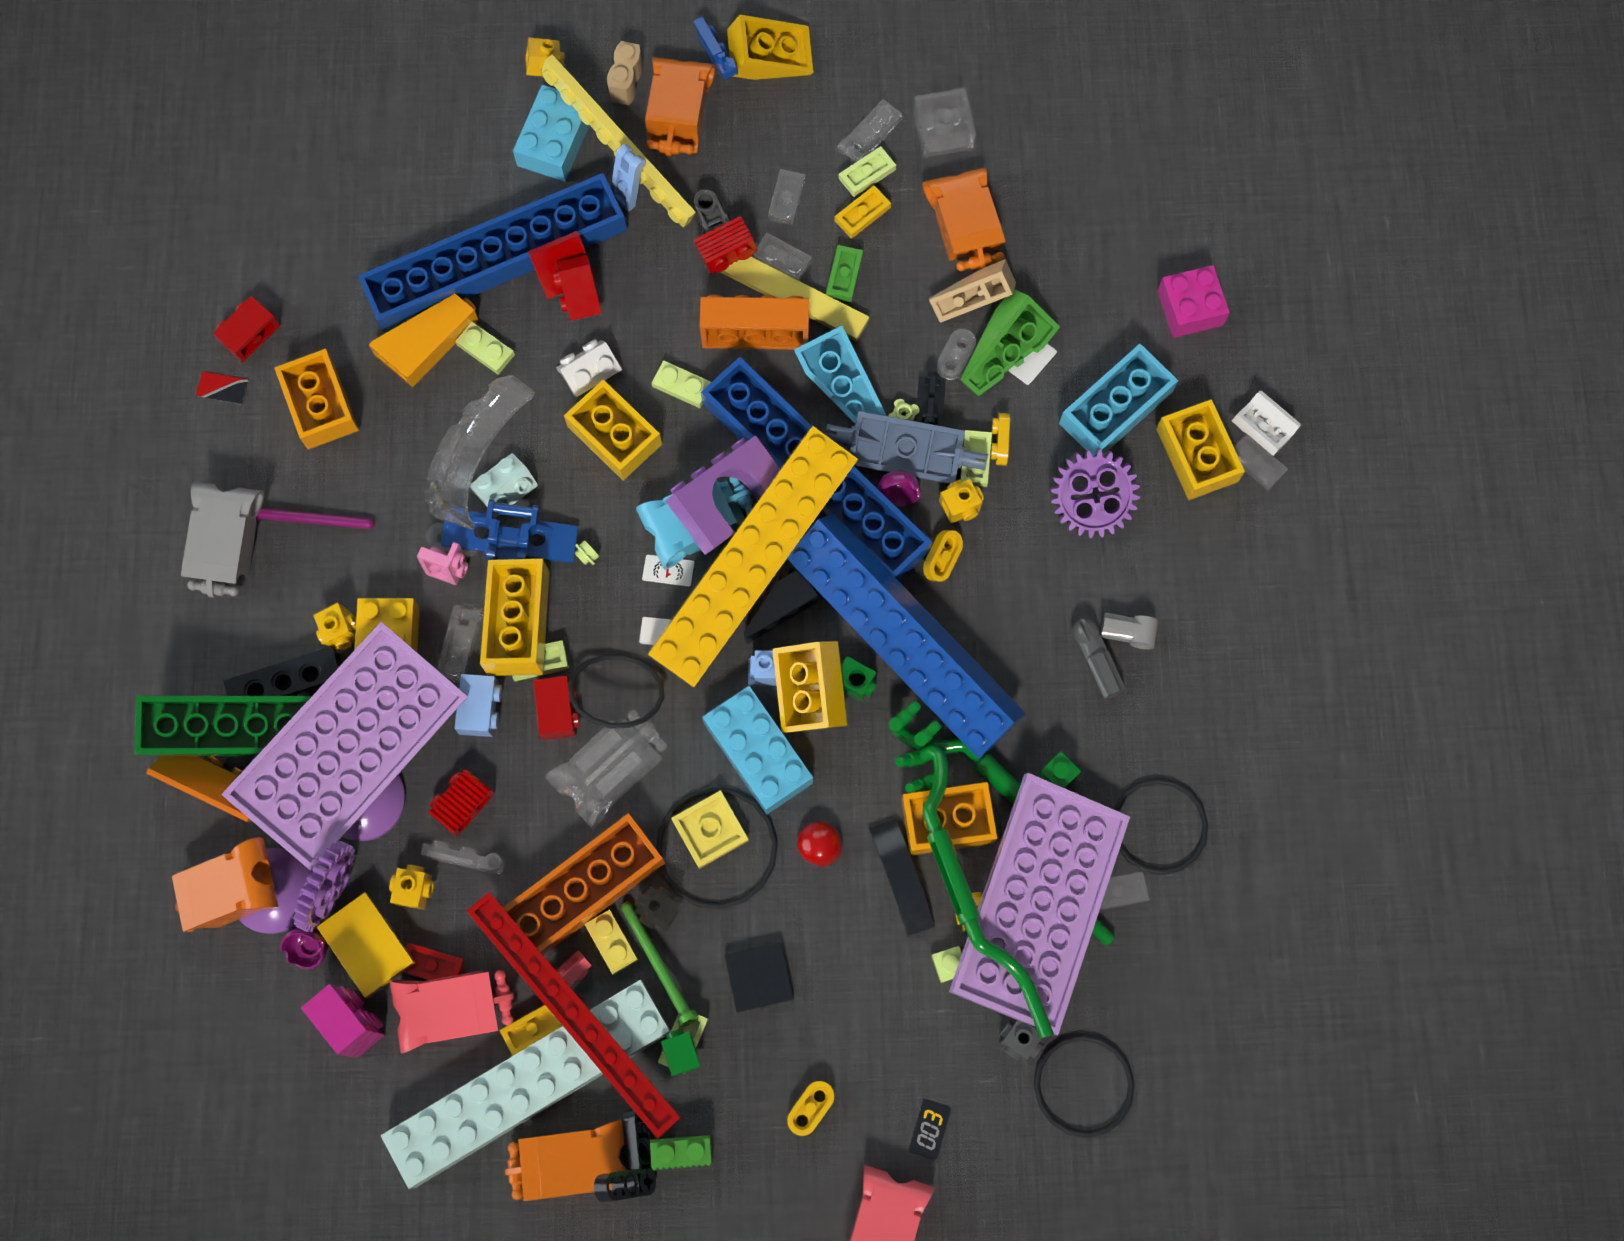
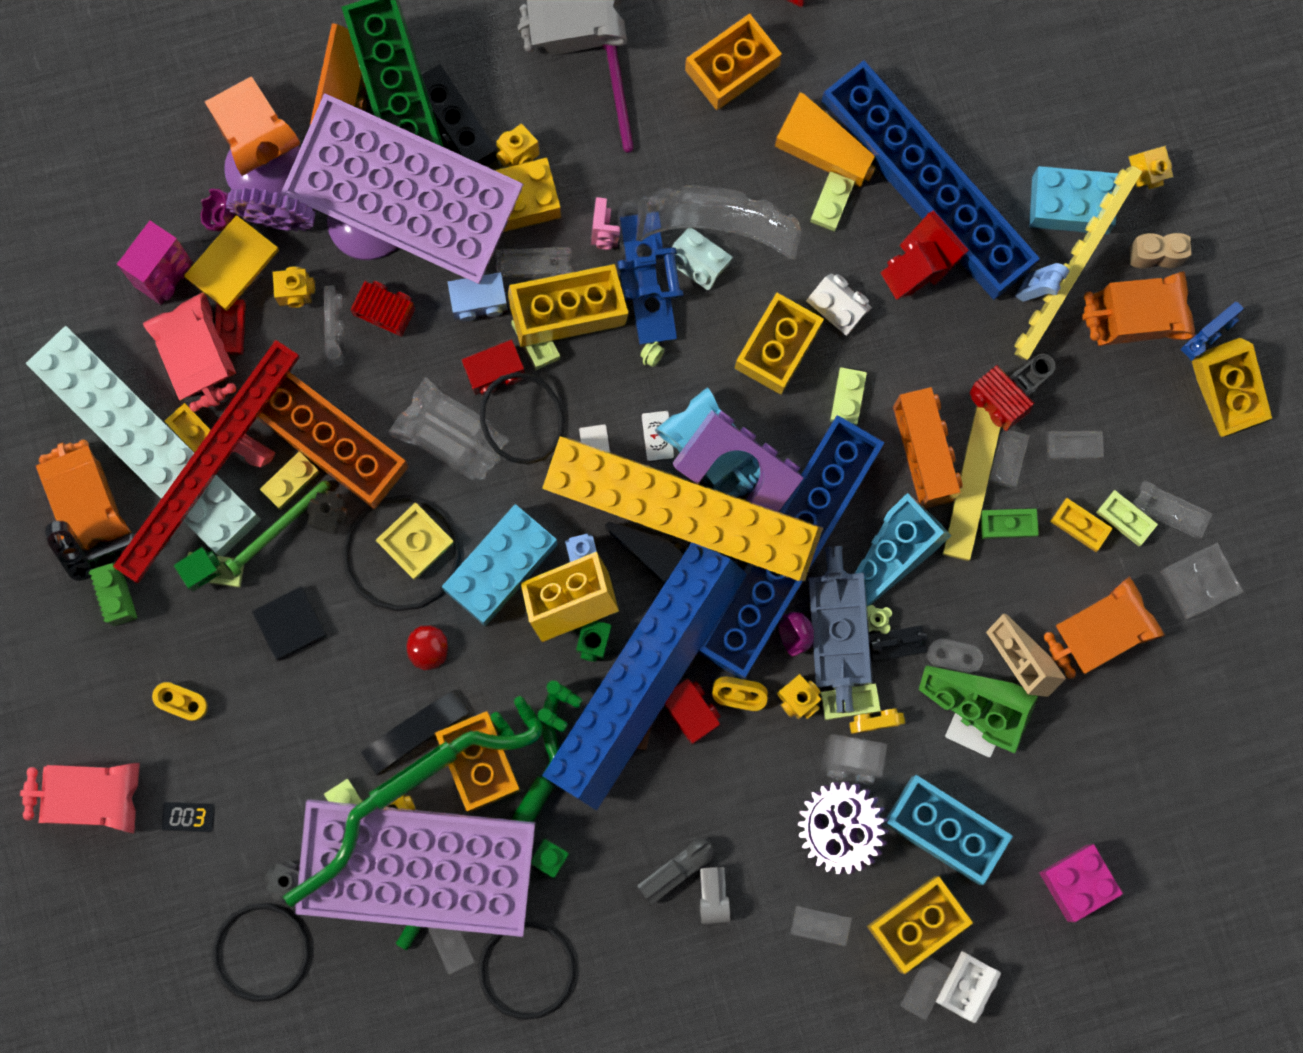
camera: 70 degrees right, 5 degrees up
(951, 604) = (691, 711): none -> red brick
(1033, 466) = (853, 758): none -> clear brick
(1180, 540) = (820, 926): none -> clear plate

